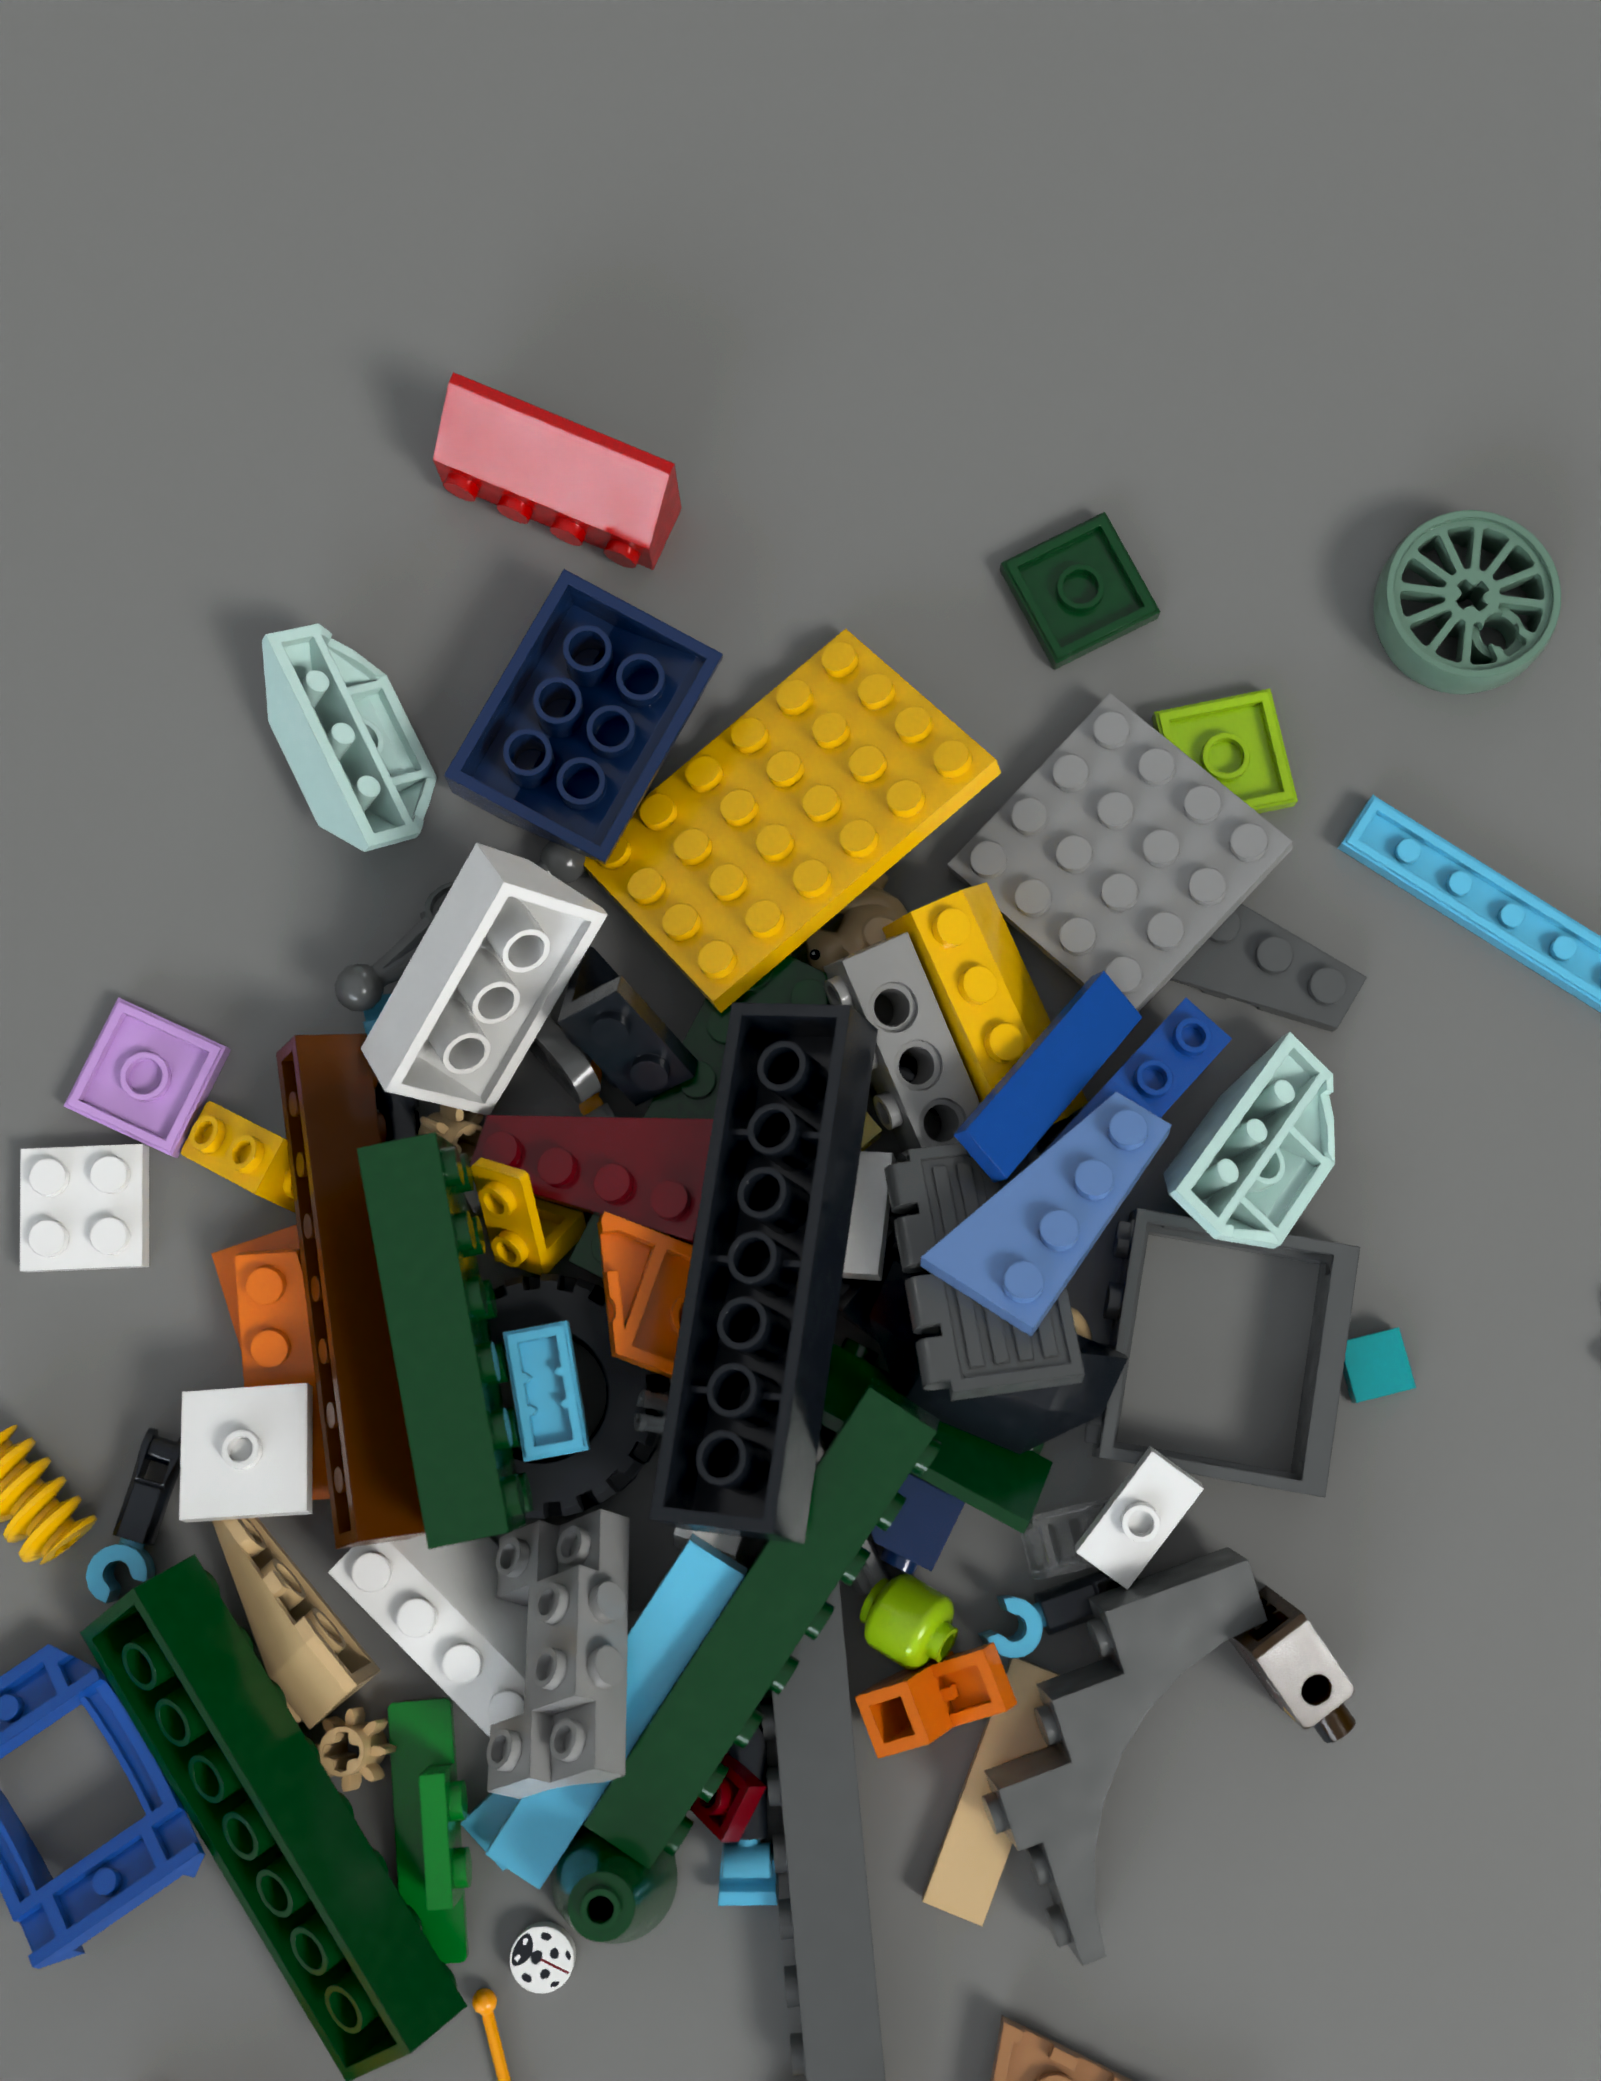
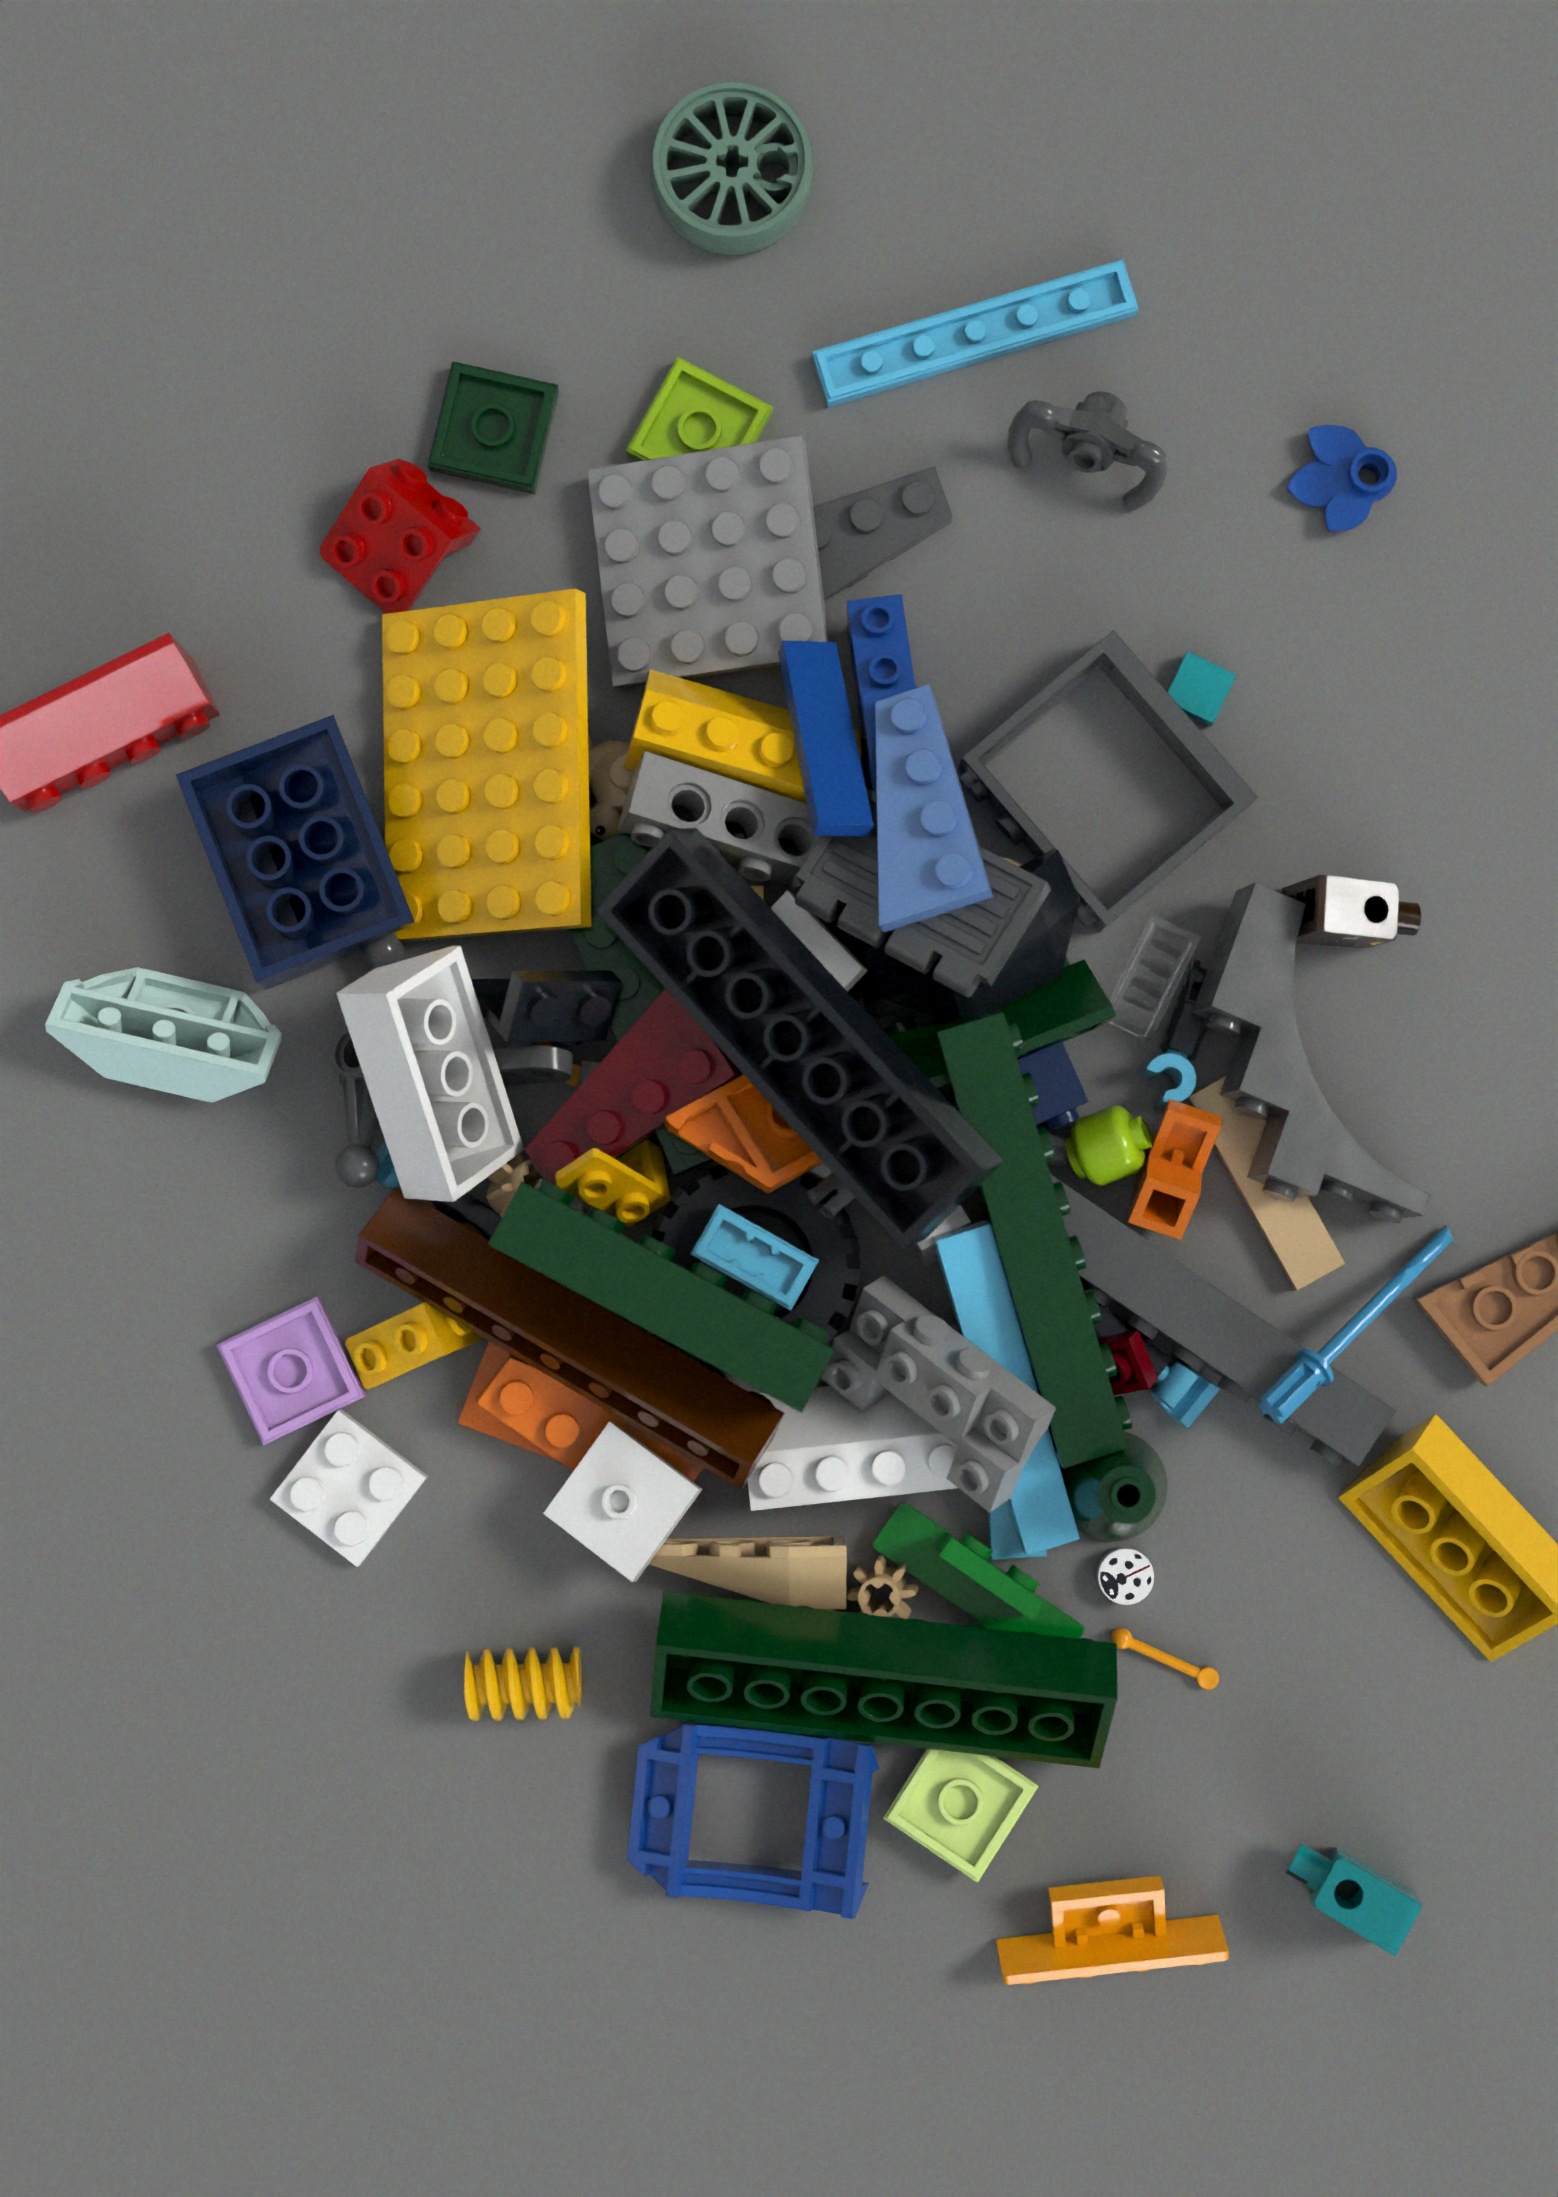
camera: 55 degrees left, 5 degrees up
(137, 1520) = (599, 1615): black piece -> none
(216, 1982) = (961, 1806): none -> yellowish green plate
(857, 1981) = (1313, 1368): none -> dark azure piece
(921, 584) = (395, 535): none -> red bracket
(1138, 1517) = (1168, 932): white plate -> none
(1259, 1149) = (991, 639): light aqua wedge -> none
(1506, 1092) = (1091, 441): none -> dark grey piece

